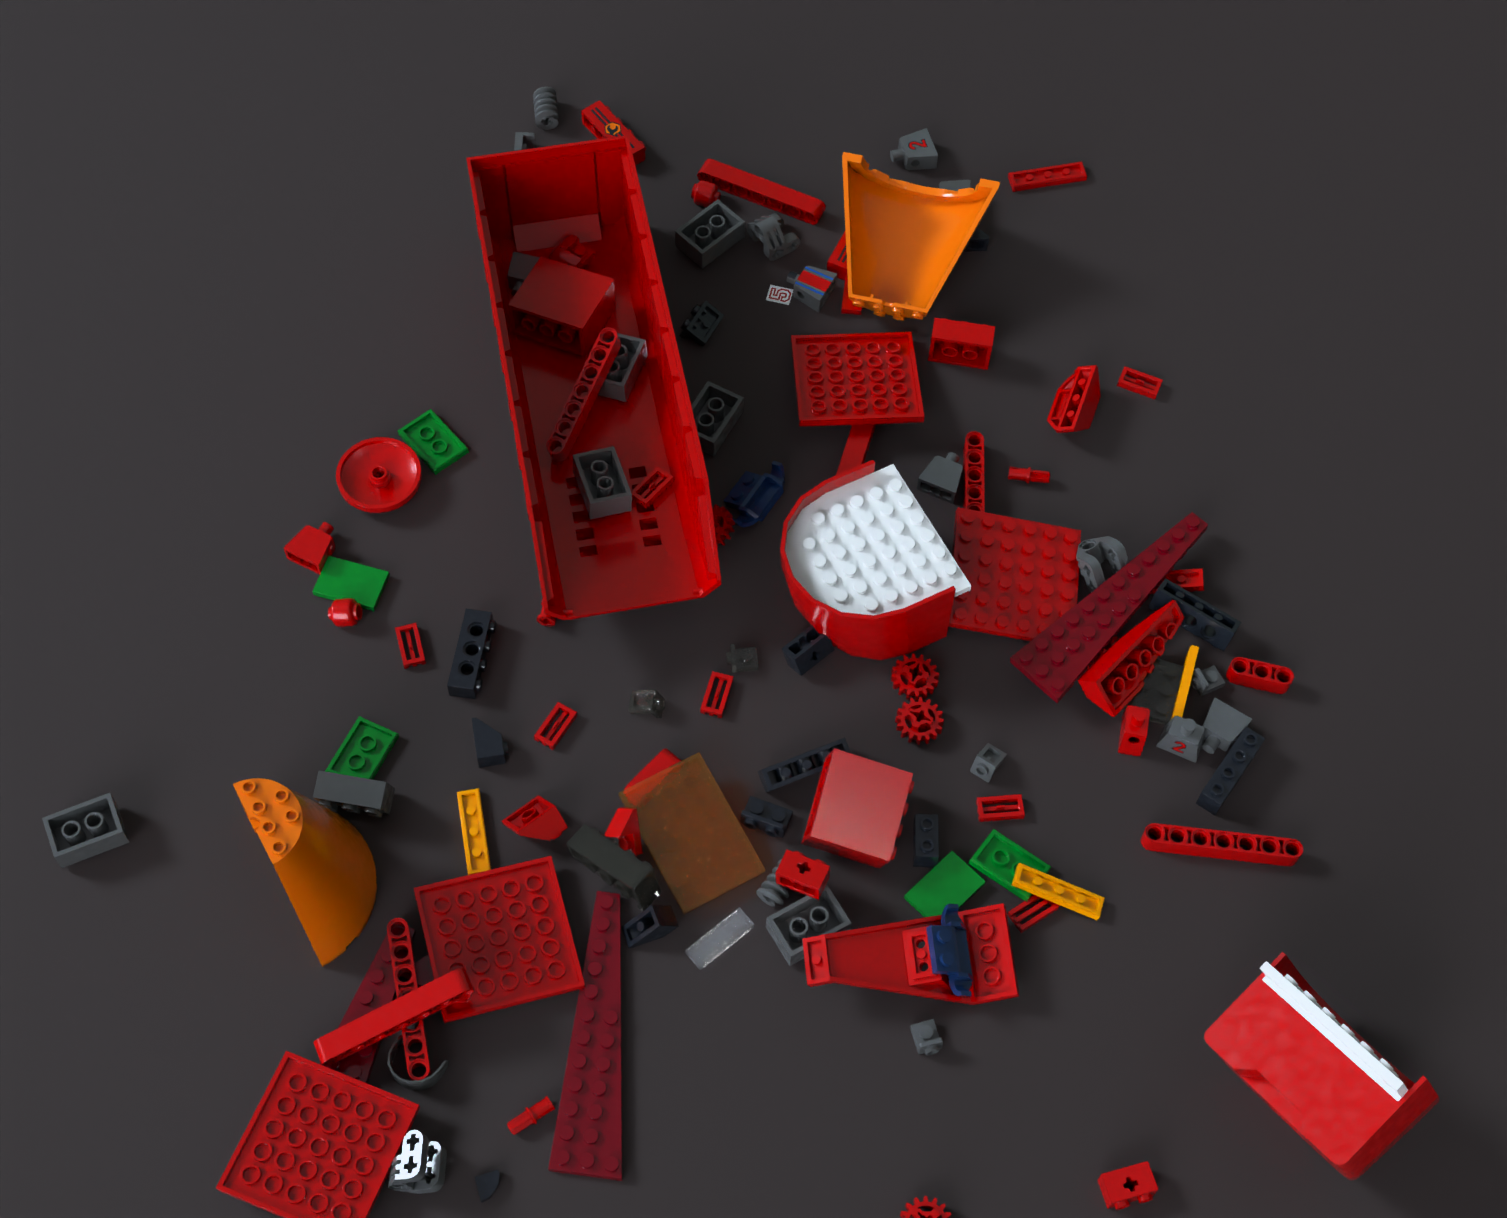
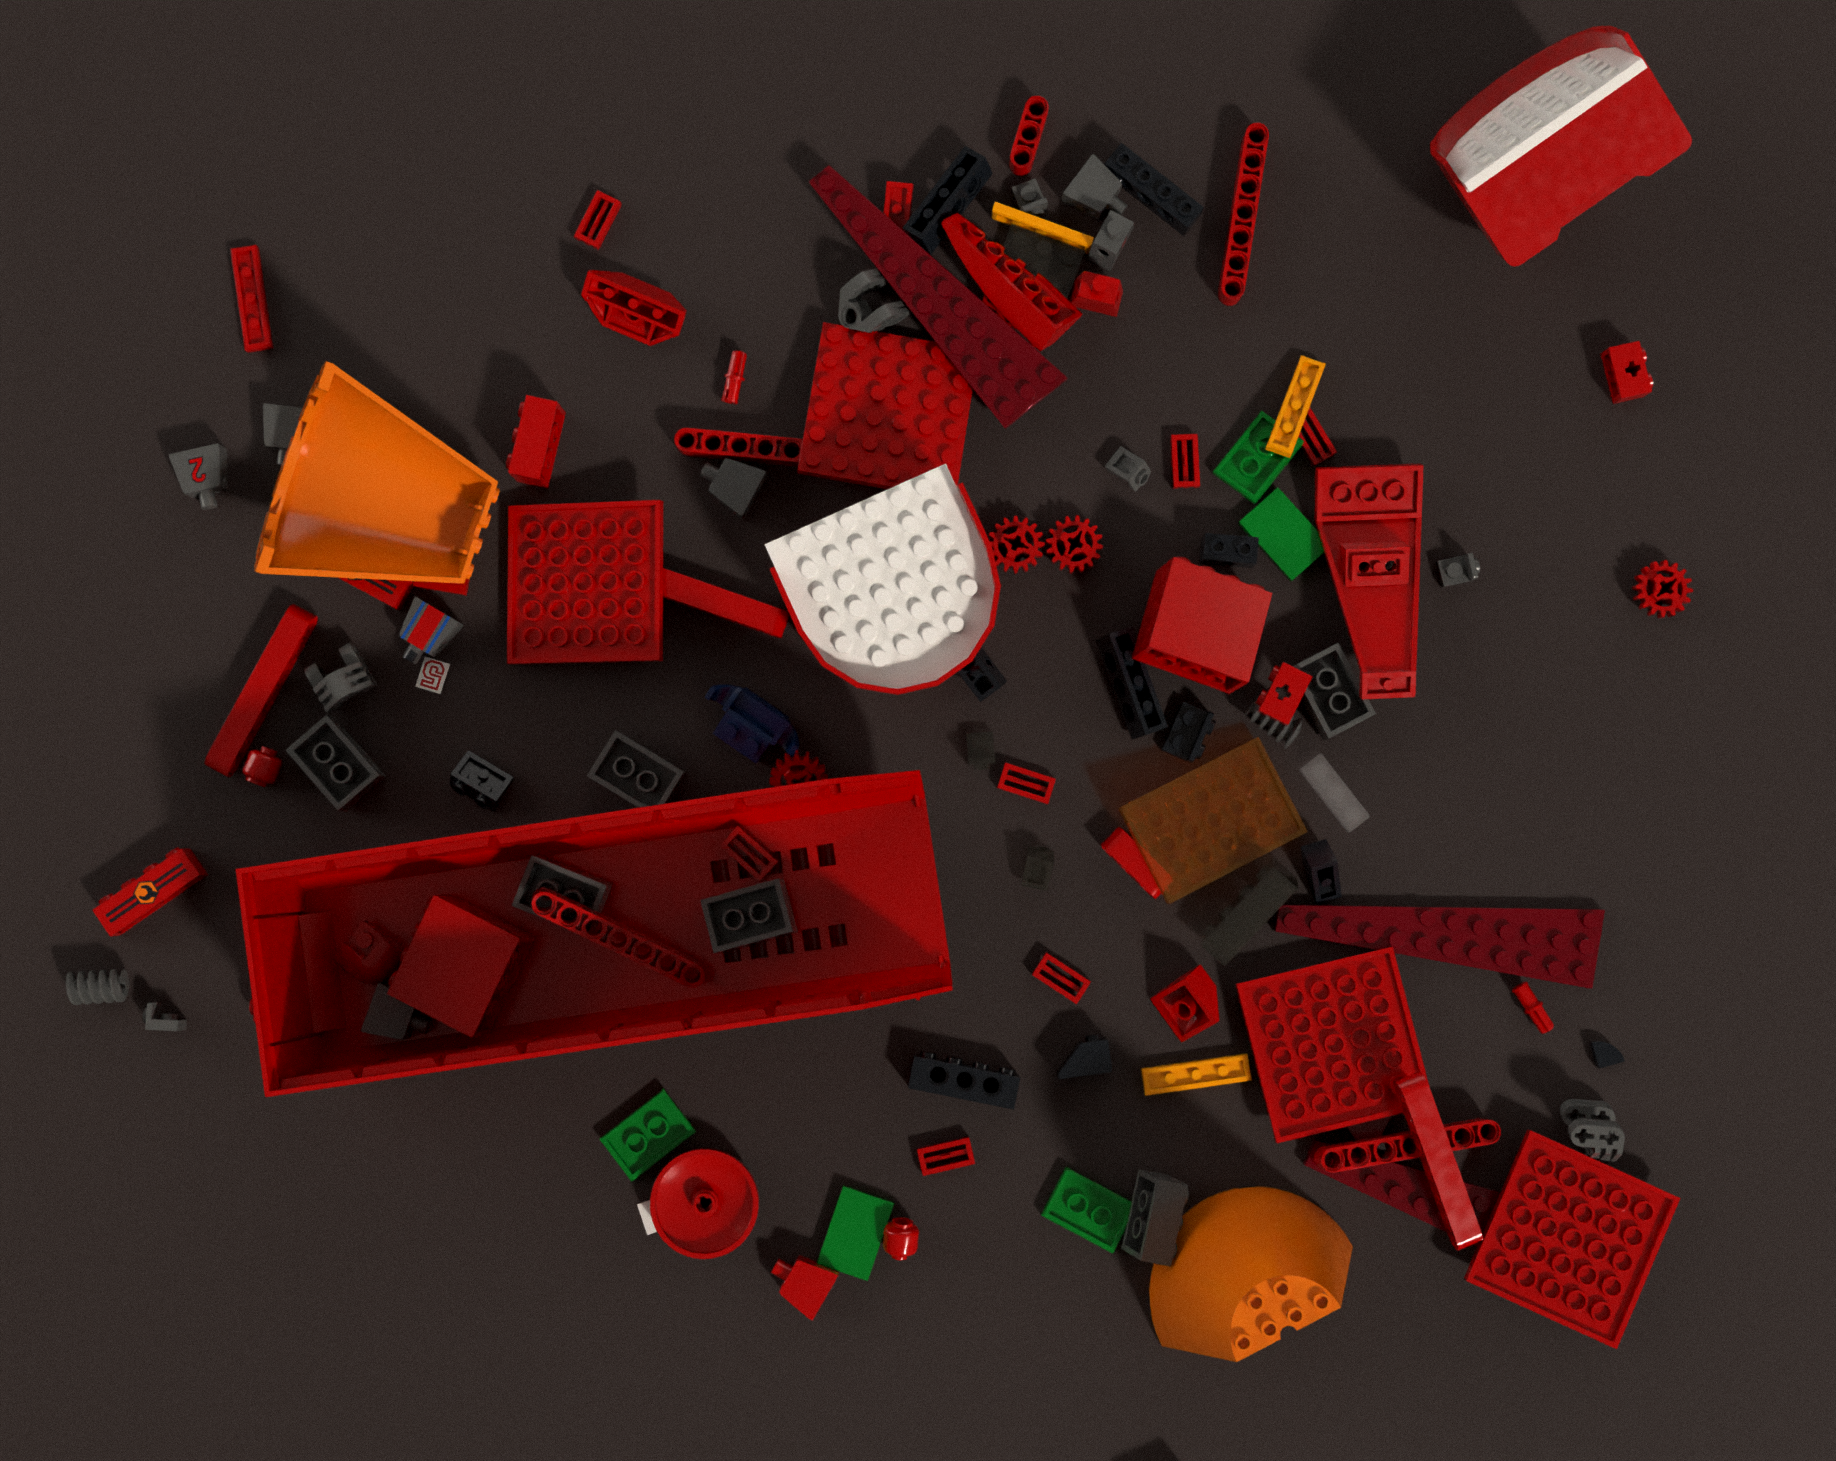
camera: 85 degrees left, 25 degrees up
(418, 1084) = (1496, 1149): dark grey piece -> none
(626, 829) = (1212, 897): red slope -> none
(950, 951) = (1375, 533): dark blue plate -> none

